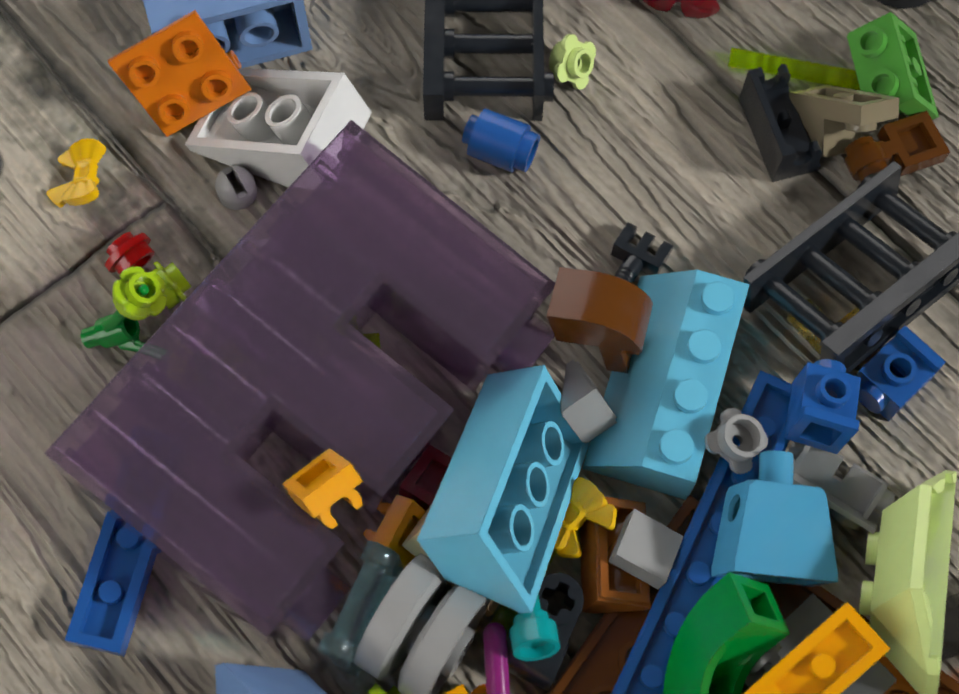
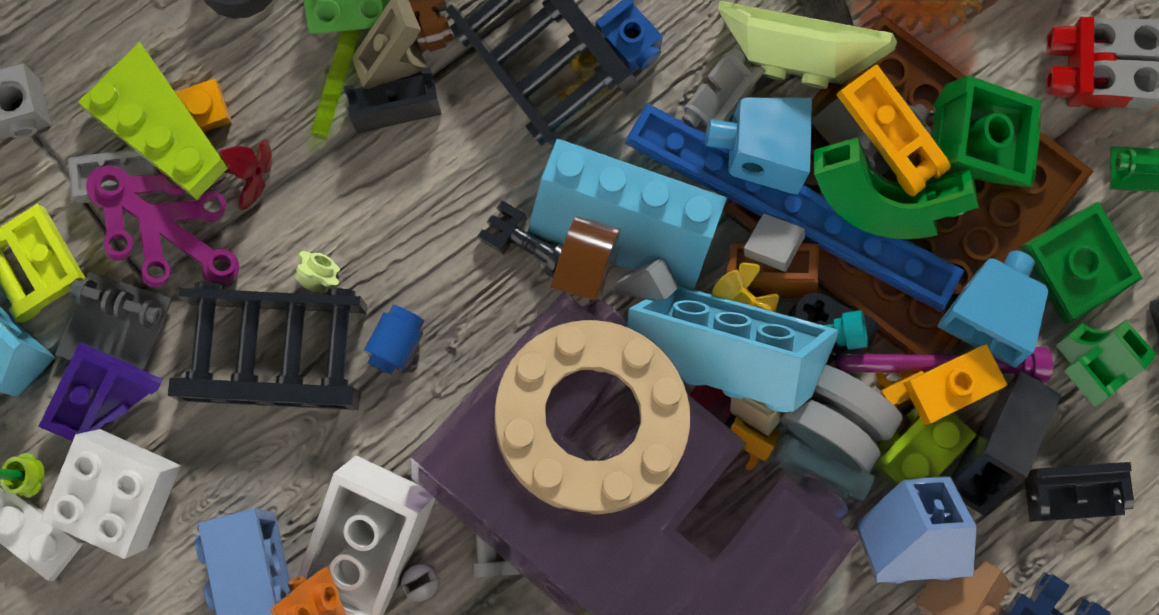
camera: 85 degrees left, 10 degrees up
(323, 484) = (746, 486): light orange tile -> none
(376, 384) = (568, 480): none -> tan plate
(748, 432) = (692, 151): light grey plate -> none
(823, 406) = (667, 92): blue brick -> none

